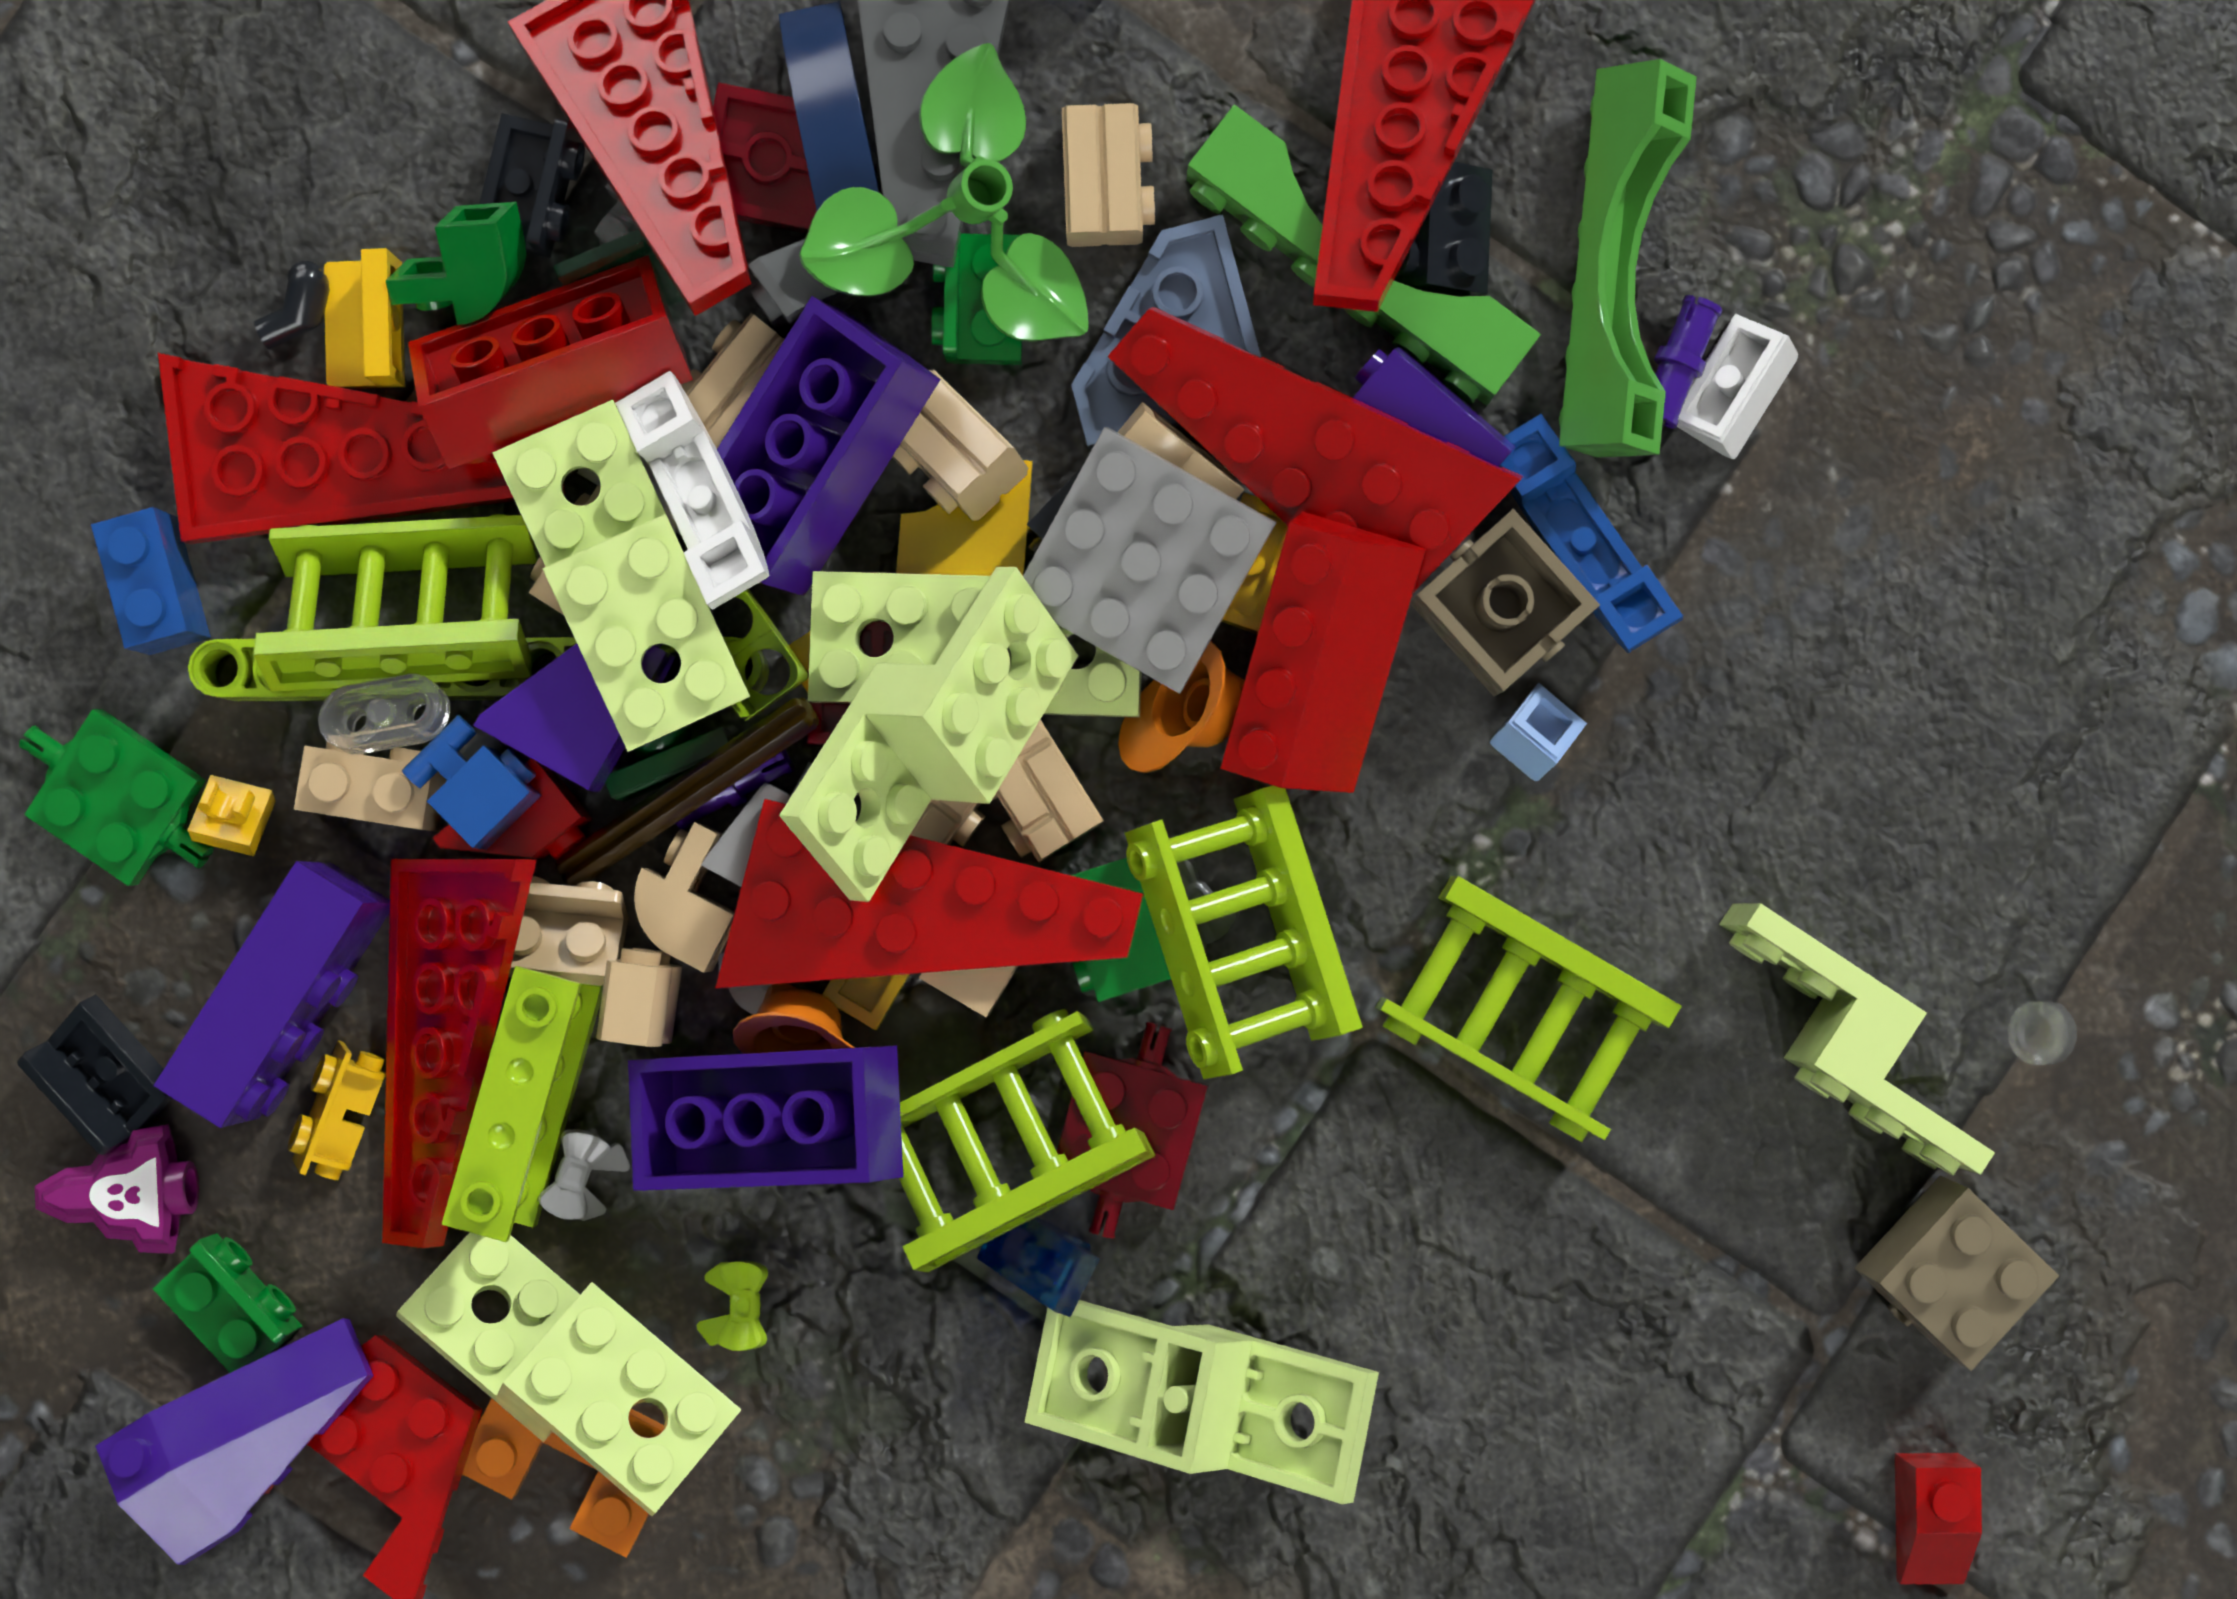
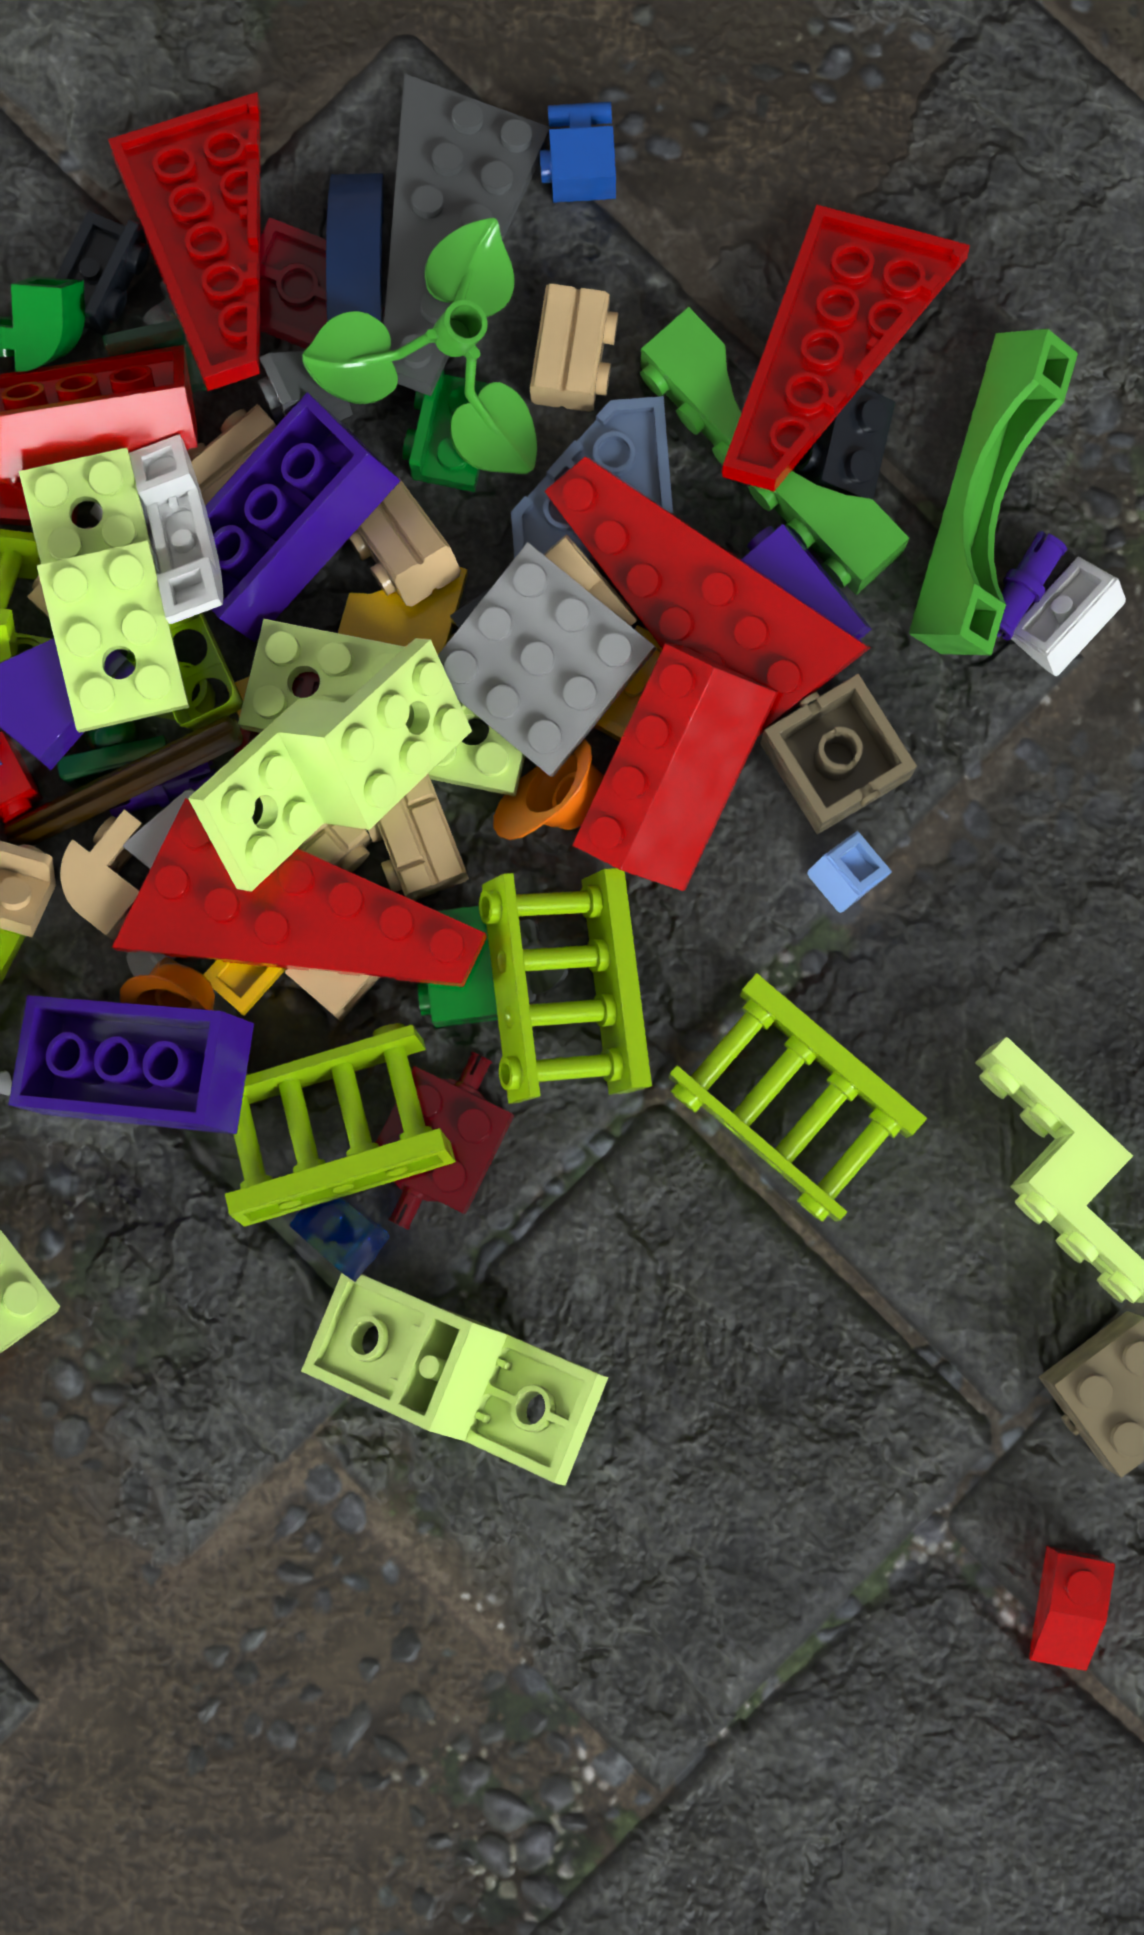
camera: 20 degrees right, 5 degrees down
(639, 998) = (48, 946): tan brick -> none
(741, 1327) = (78, 1244): lime piece -> none
(1582, 537) = (908, 701): blue slope -> none

